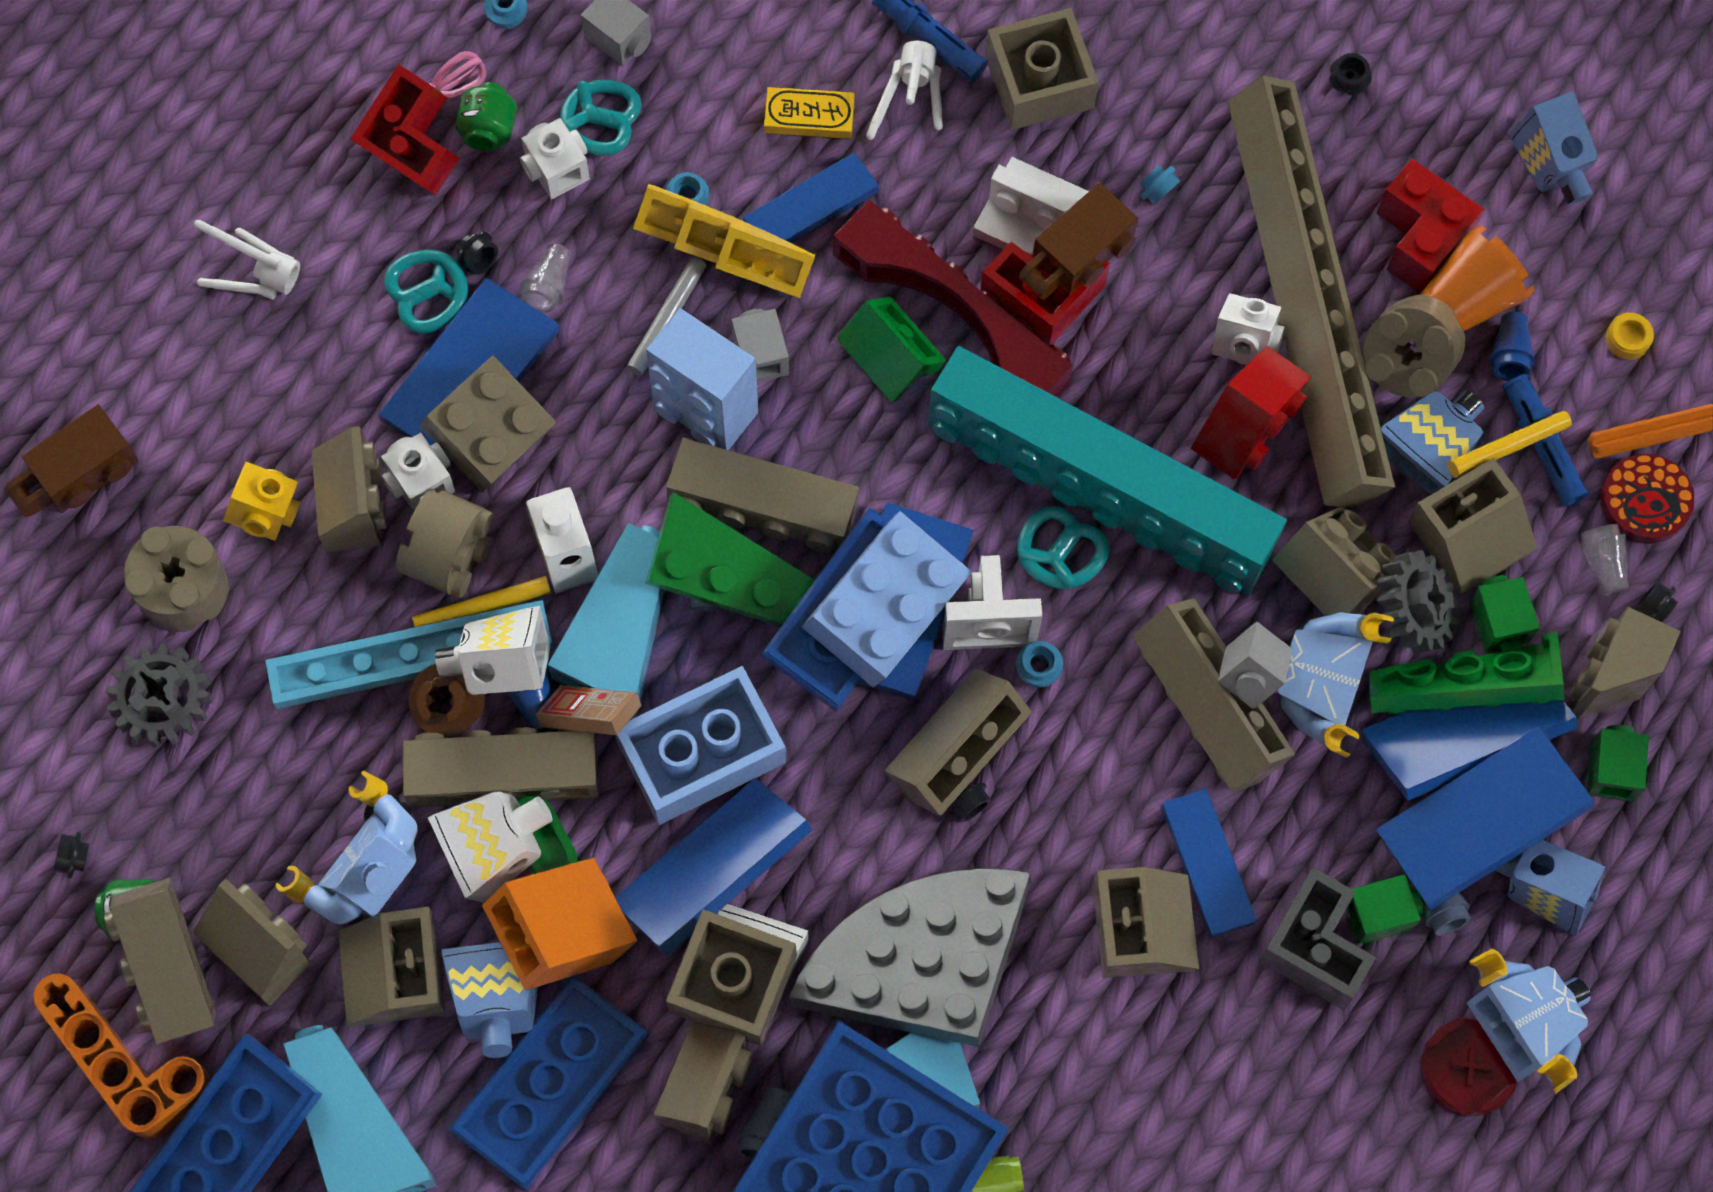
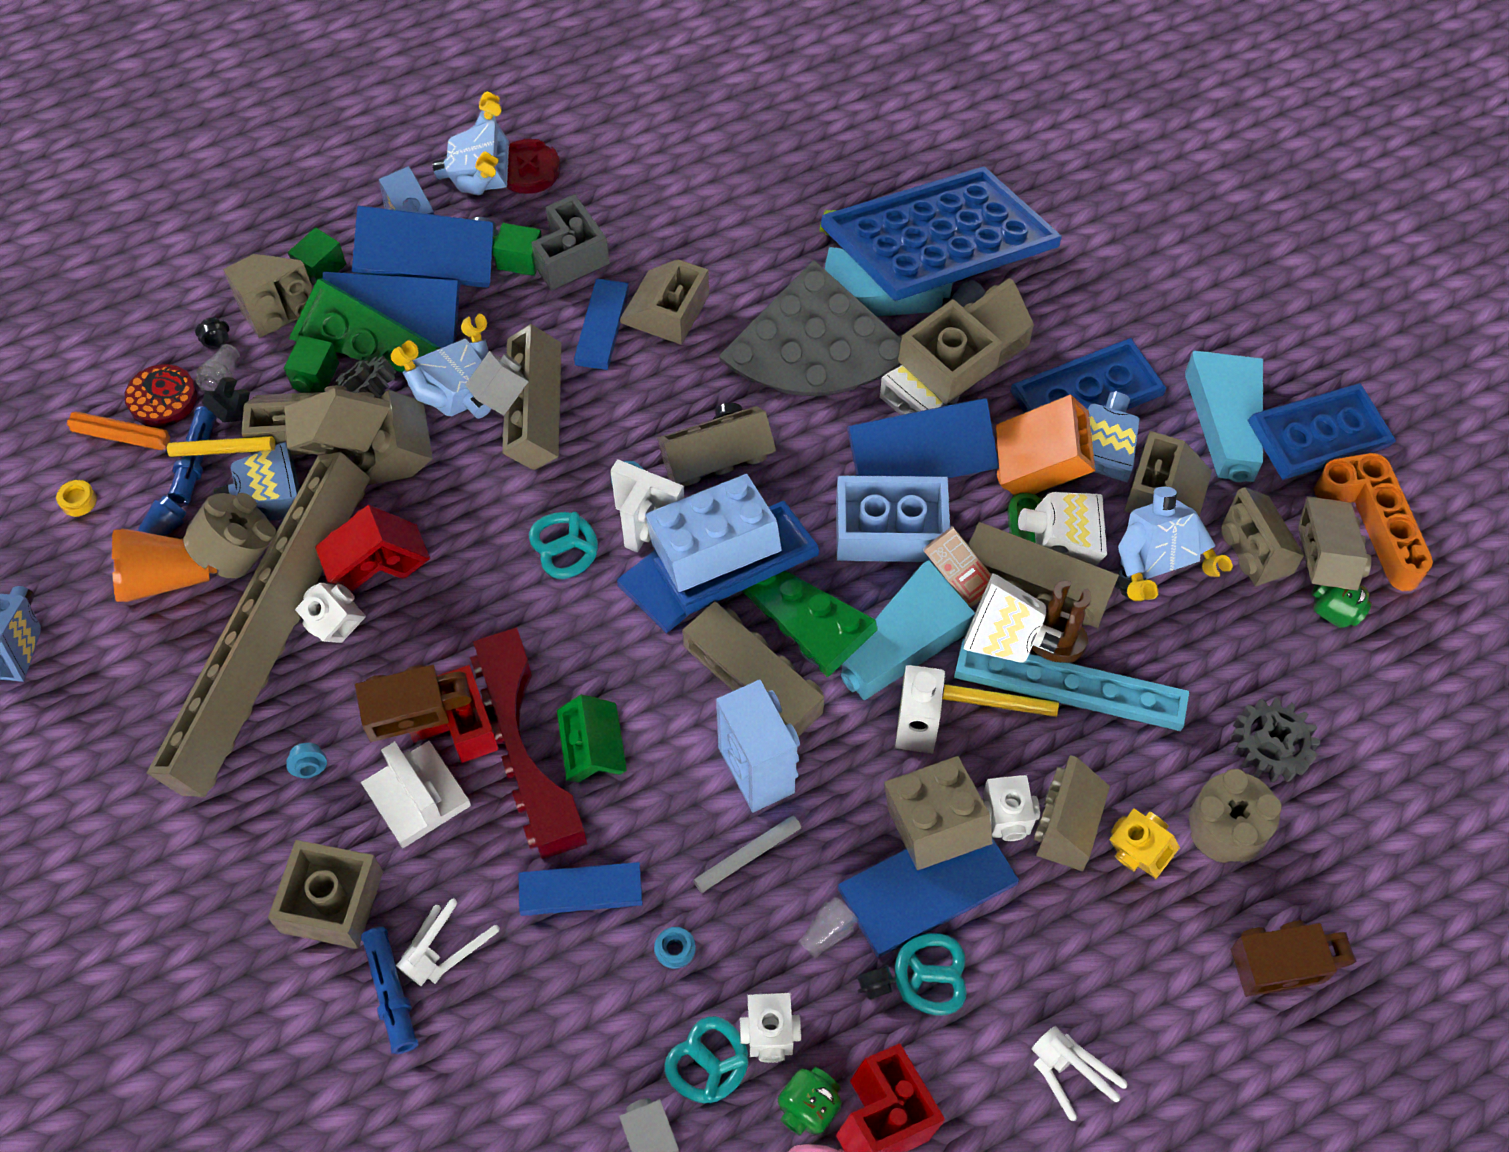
camera: 150 degrees left, 10 degrees down
(71, 855) = (1375, 661): black plate -> none
(445, 542) = (1011, 735): dark tan brick -> none
(724, 240) = (663, 874): yellow slope -> none
(761, 336) = (690, 784): light grey brick -> none
(809, 112) = (532, 971): yellow tile -> none
(1103, 472) = (508, 561): teal brick -> none
(1350, 64) = (89, 772): black plate -> none
(1396, 504) = (334, 421): none -> dark tan slope
(1431, 217) = (139, 621): red brick -> none
(1556, 515) = (225, 401): none -> black tile

